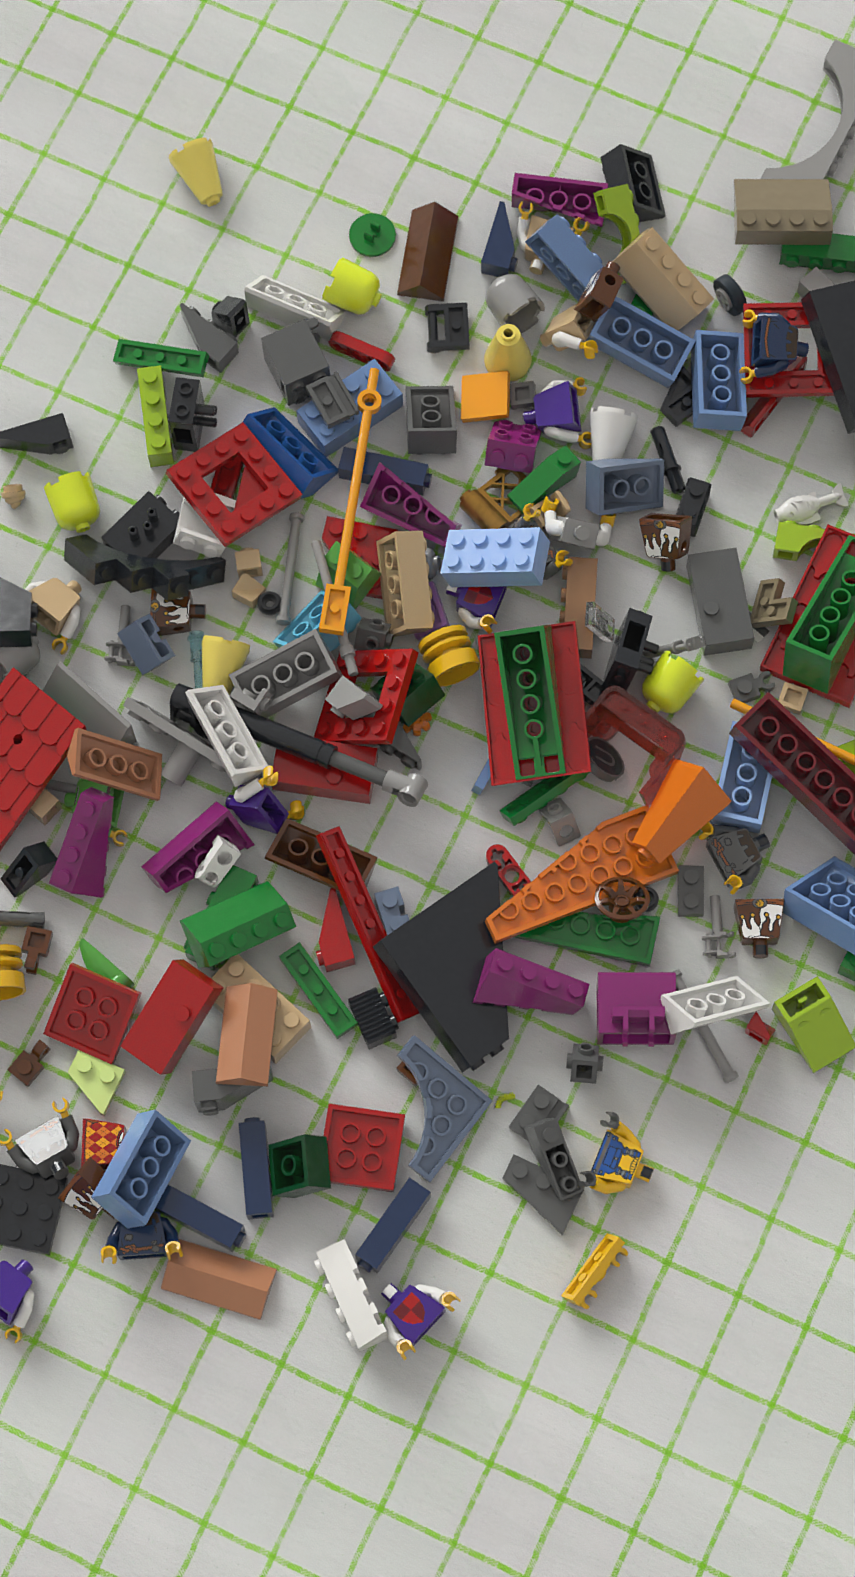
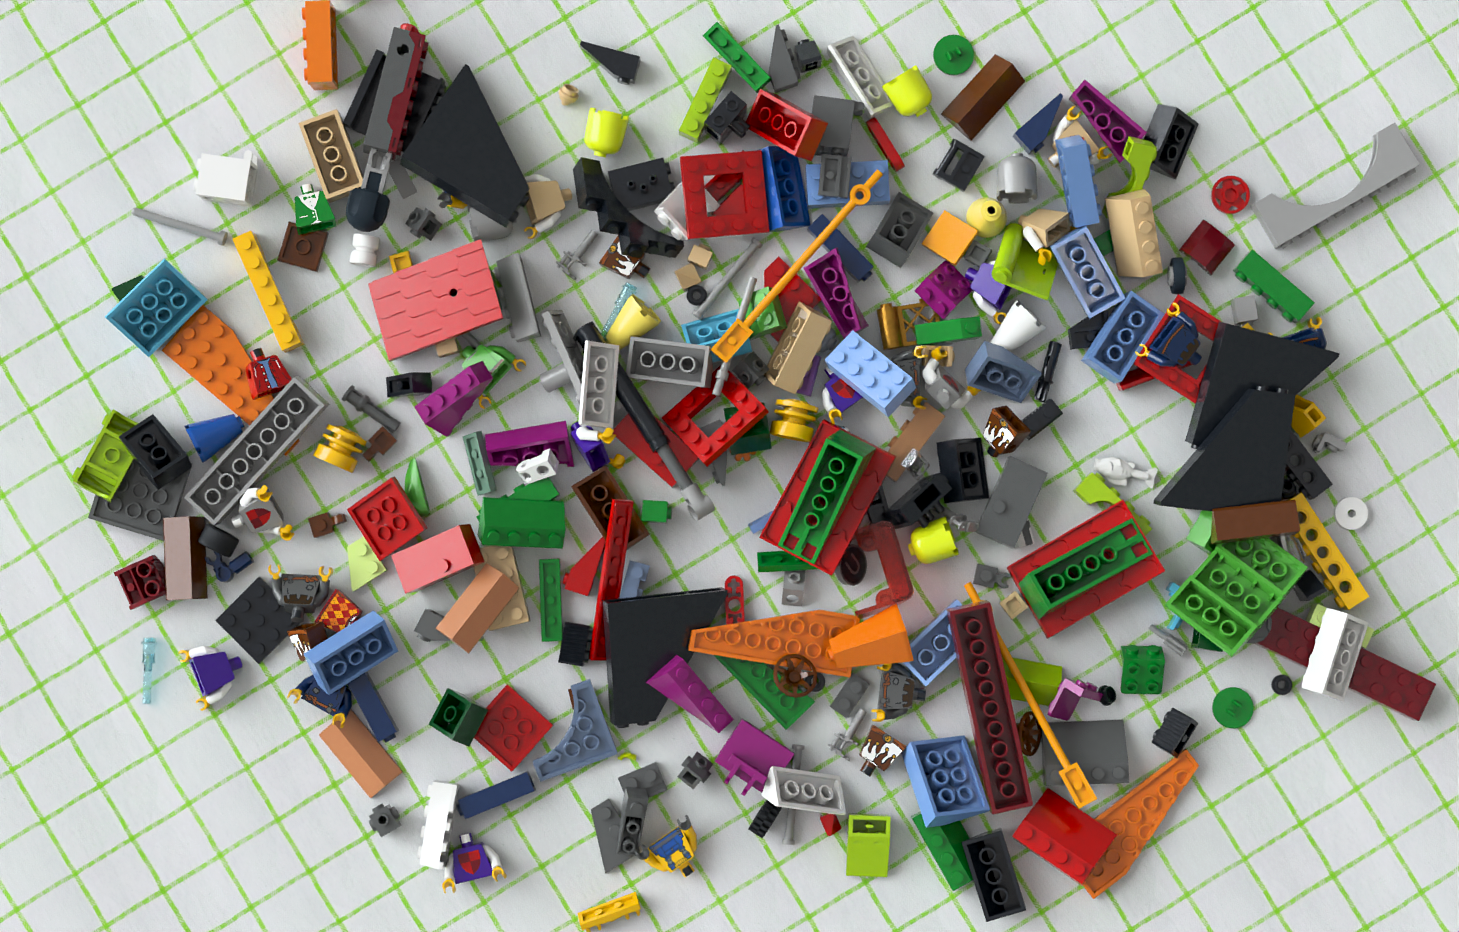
camera: 30 degrees right, 15 degrees up
(115, 764) = (509, 354): nougat slope -> none
(145, 644) = (587, 274): sand blue brick -> none
(153, 900) = (479, 463): none -> sand green plate
(248, 700) = (630, 368): light grey bracket -> none
(252, 380) = (786, 125): none -> red brick
(256, 1168) = (430, 696): dark blue brick -> none
(296, 1335) = (379, 825): none -> dark grey brick
(351, 700) = (701, 414): light grey slope -> none
(369, 829) = (656, 511): none -> green brick
(574, 371) = (1019, 266): none -> lime door
(600, 292) = (1079, 221): reddish brown torso -> none
(647, 592) = (964, 468): none -> black slope
(690, 1064) = (764, 819): none -> black tyre
(723, 198) = (1230, 195): none -> red wheel
(738, 259) = (1207, 247): none -> dark red slope
(769, 607) = (1040, 529): dark tan plate -> none
(782, 212) = (1259, 236): dark tan slope -> none

